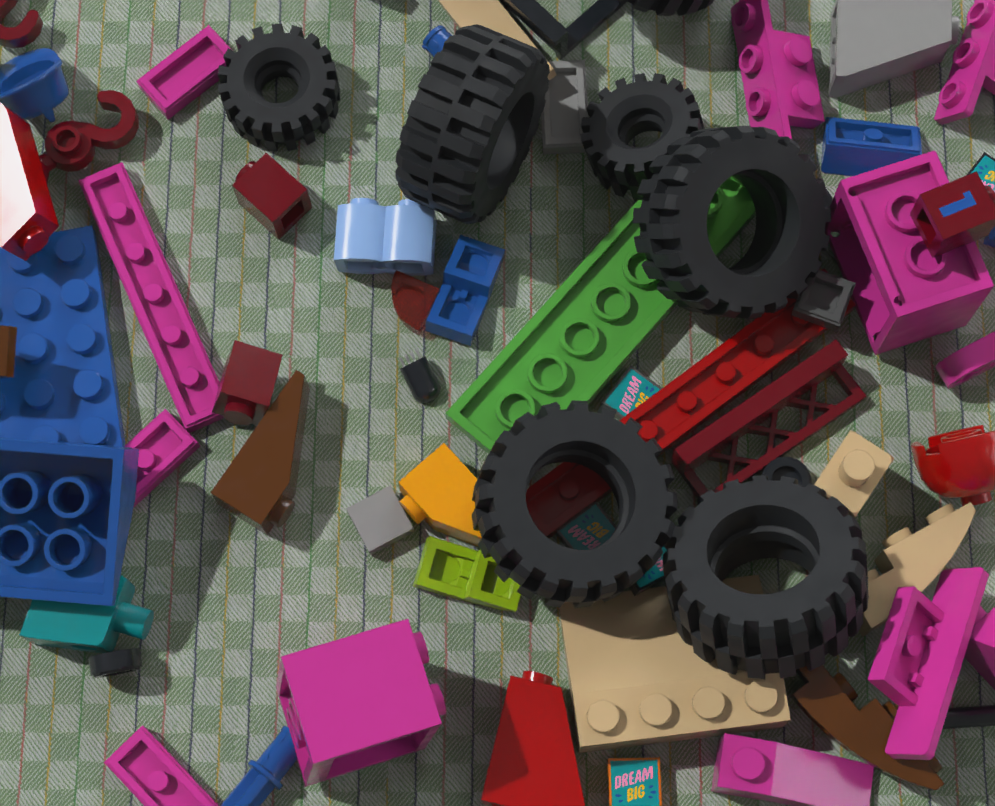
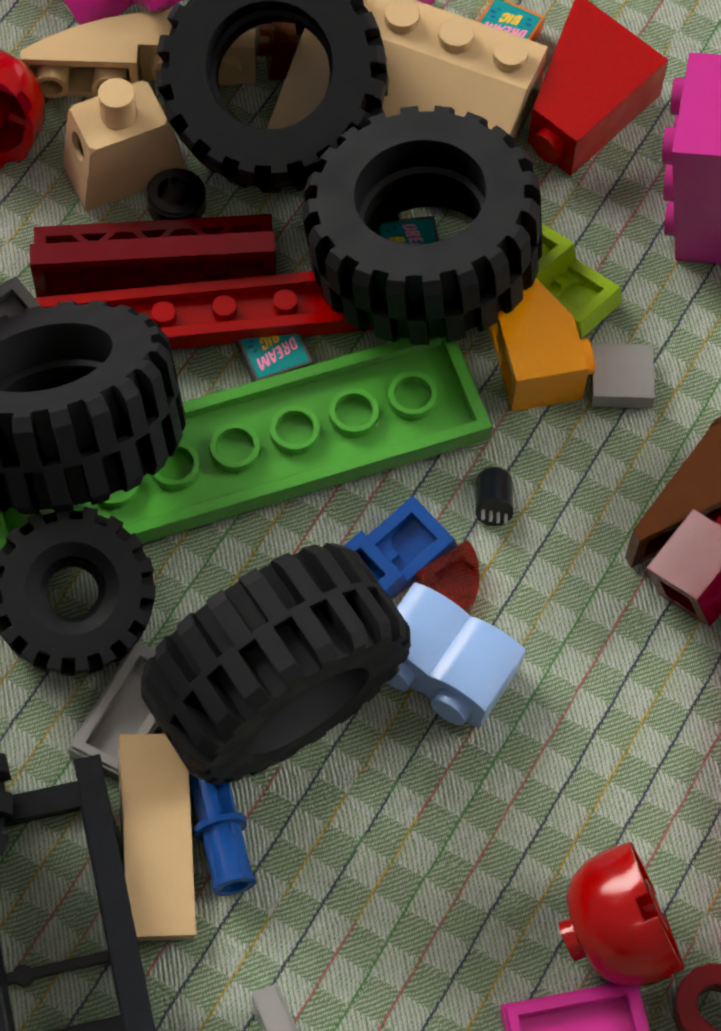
camera: 155 degrees left, 10 degrees down
(183, 124) = (619, 921): none -> red cylinder
(271, 195) = (556, 783): dark red brick -> none
(273, 57) = (483, 872): black tyre -> none

